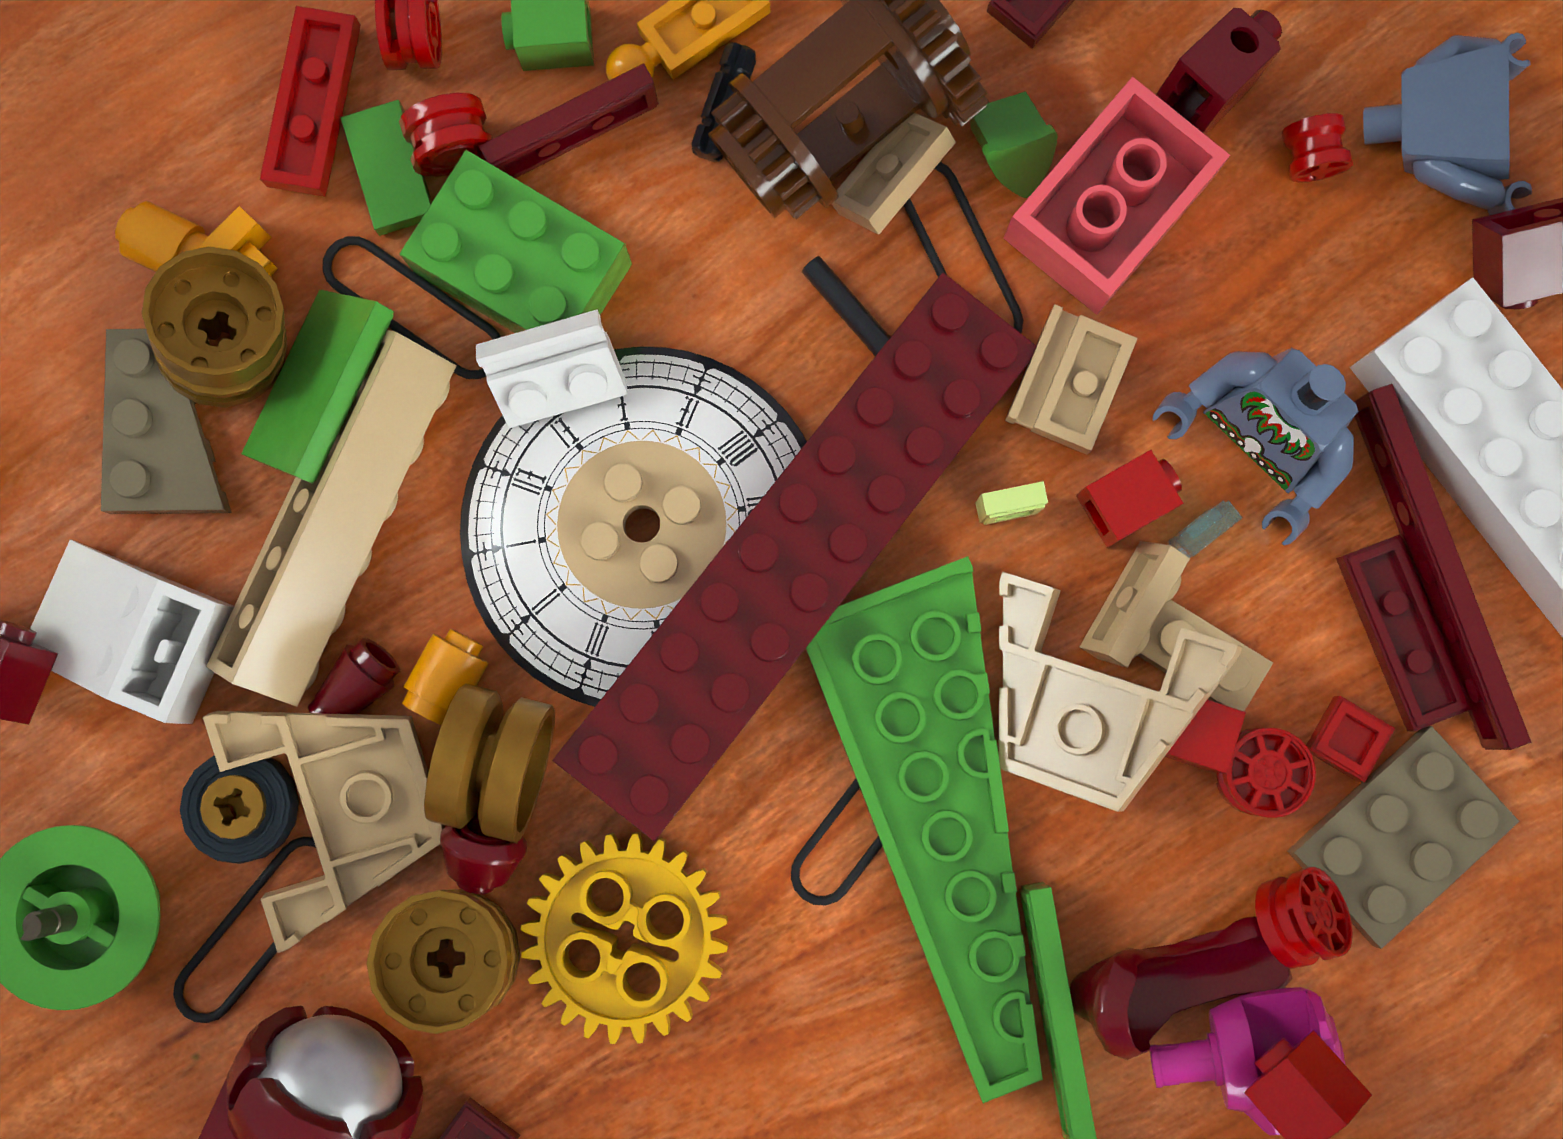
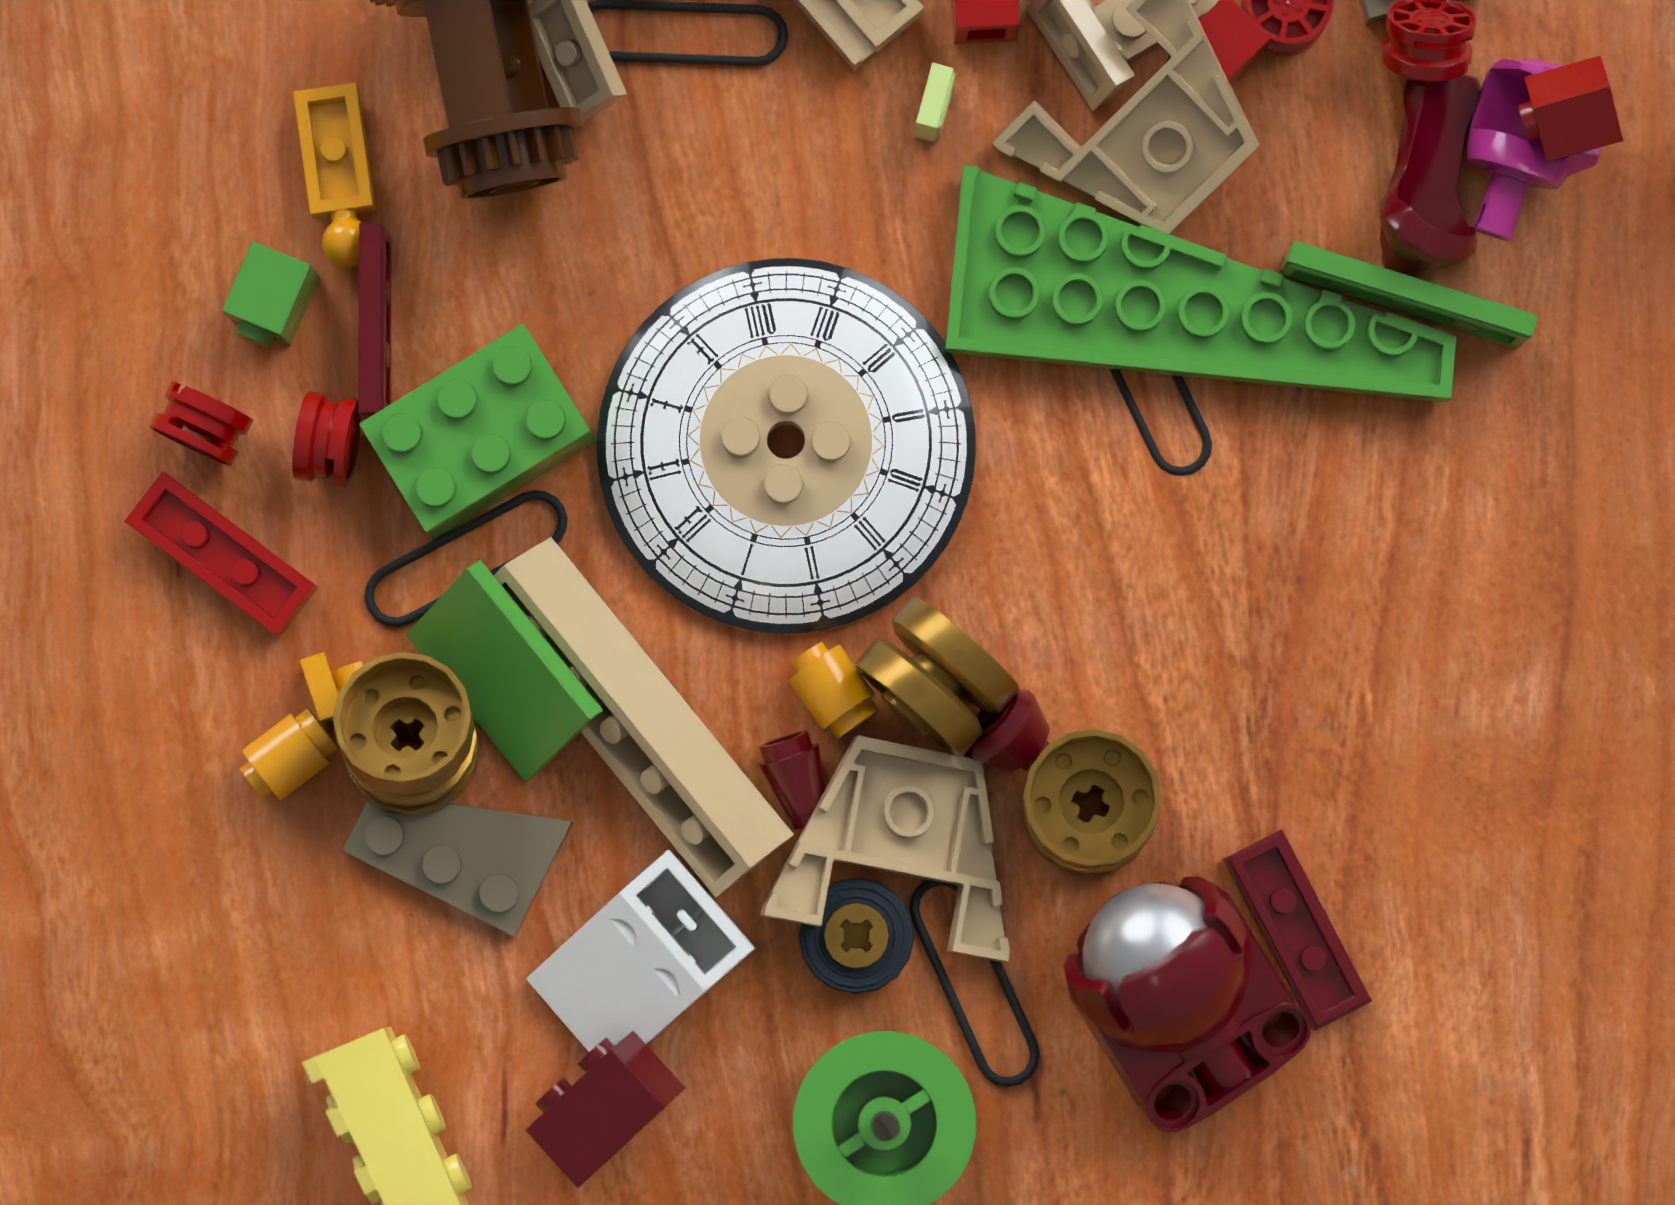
camera: 70 degrees left, 0 degrees up
(381, 155) = (321, 514): bright green tile -> none
(552, 369) = (606, 445): white plate -> none
(604, 993) = (1188, 683): yellow gear -> none
(734, 60) = (421, 173): black axle -> none
(795, 558) = (886, 313): dark red plate -> none
(846, 304) = (709, 150): black bar -> none

